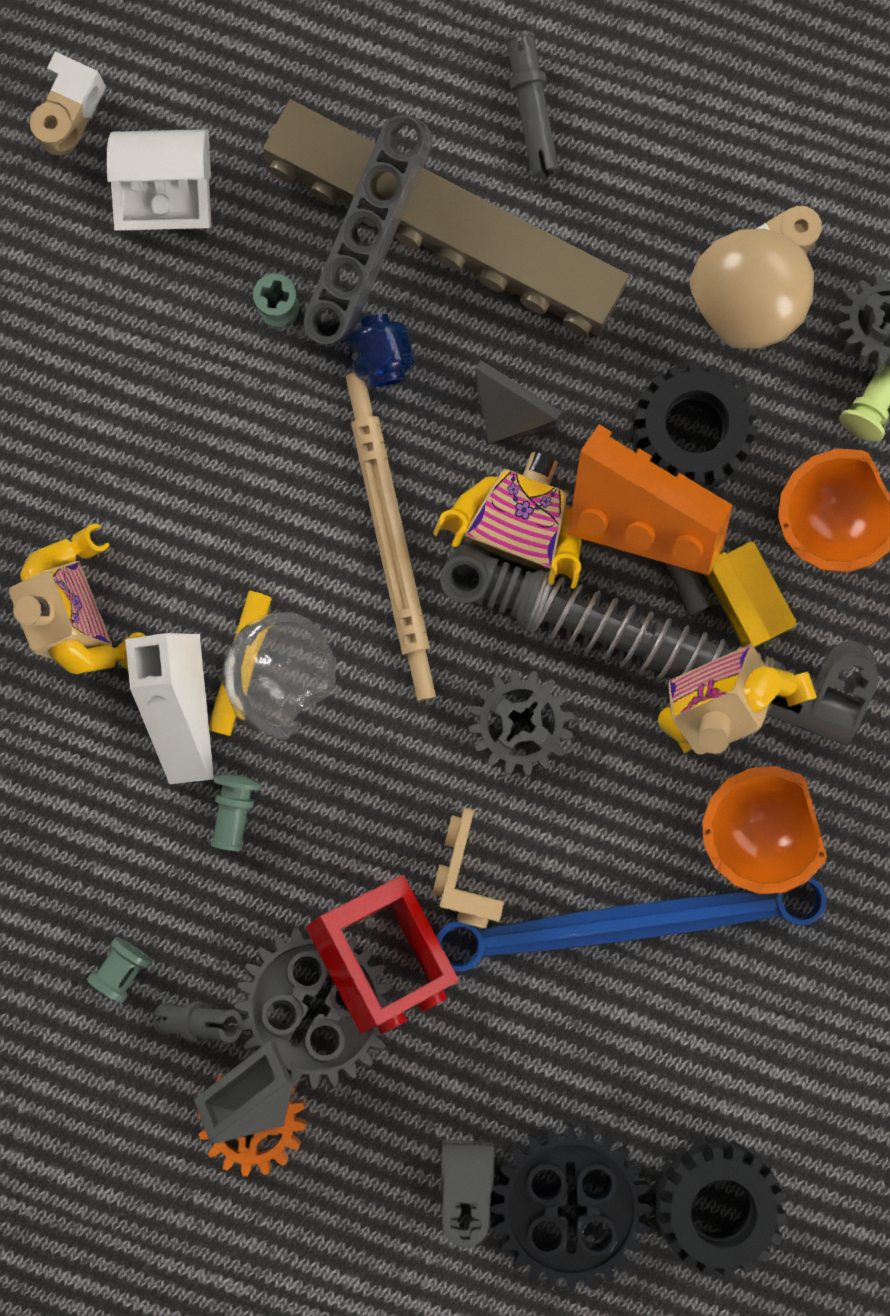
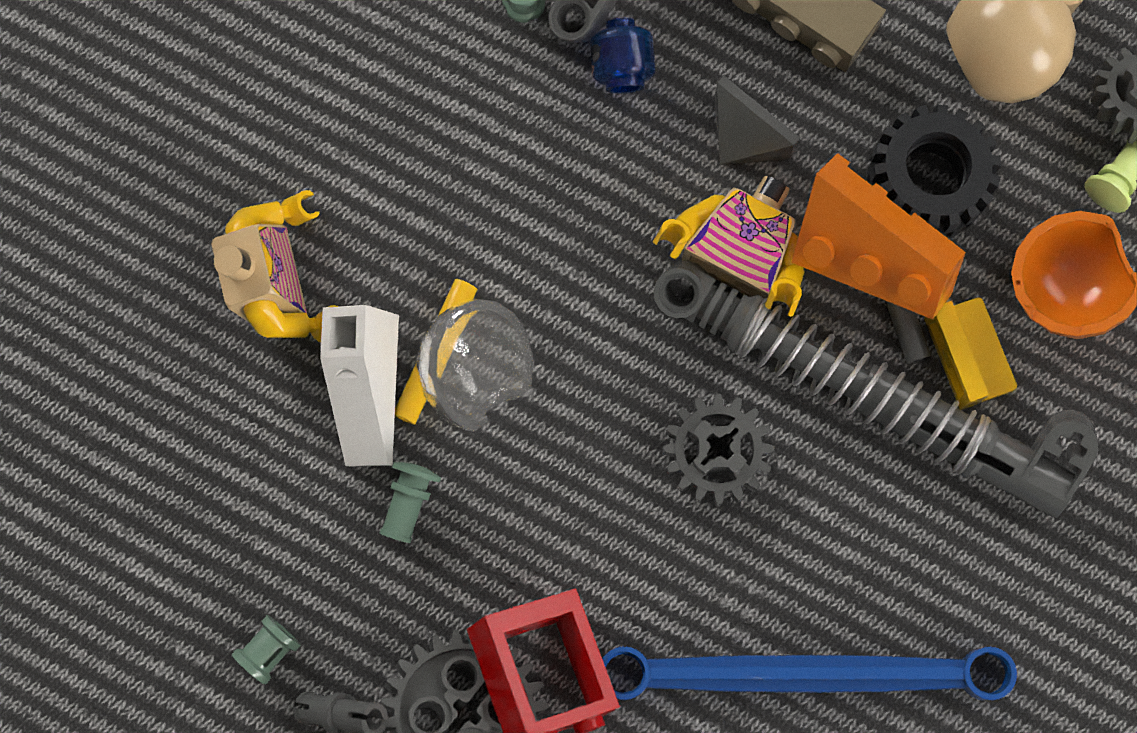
camera: 10 degrees right, 5 degrees down
(390, 537) = (608, 246): tan axle -> none
(471, 907) = (642, 630): tan bracket -> none
(727, 700) = (937, 449): torso -> none
(764, 831) = (959, 593): orange cylinder -> none

